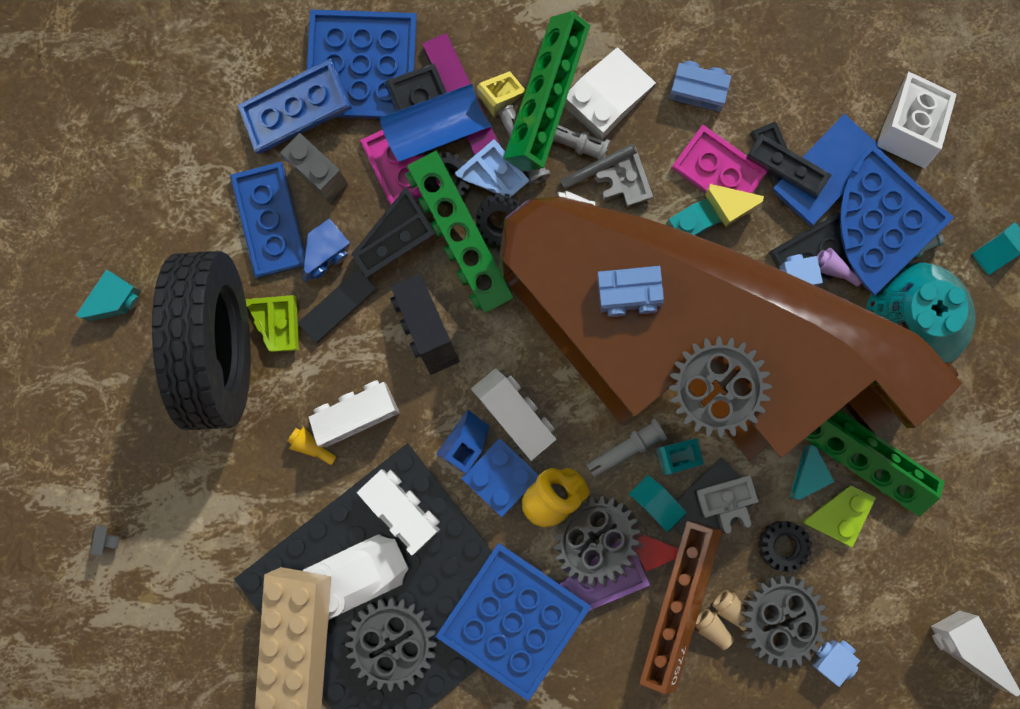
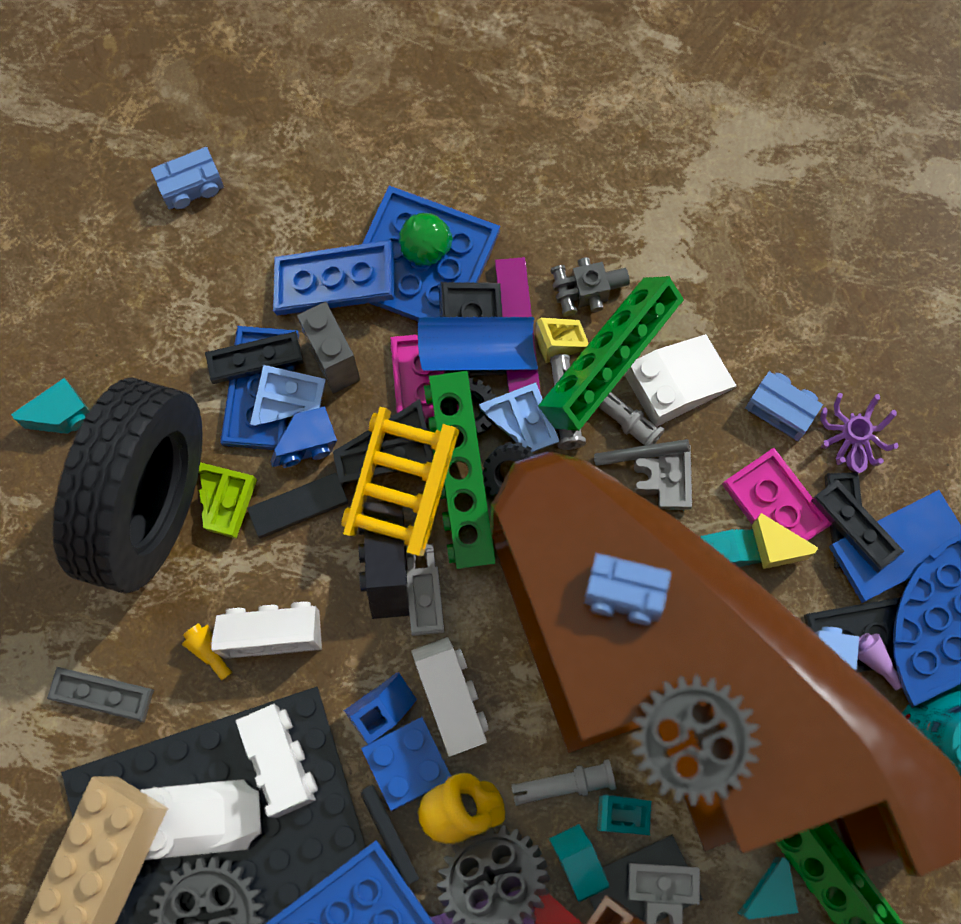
camera: 15 degrees right, 10 degrees down
(137, 62) = (187, 178): none -> medium blue brick
(239, 509) = (100, 694): none -> dark grey tile
(254, 197) = (249, 357): none -> black tile
(293, 219) = (285, 394): none -> light blue wing
(358, 47) = (425, 239): none -> green hair
(438, 244) = (423, 504): none -> yellow fence
(465, 341) = (424, 595): none -> light grey hinge
(506, 535) = (389, 834): none -> black tile
(508, 38) = (587, 285): none -> dark grey piece
(765, 88) = (857, 432): none -> medium lavender animal

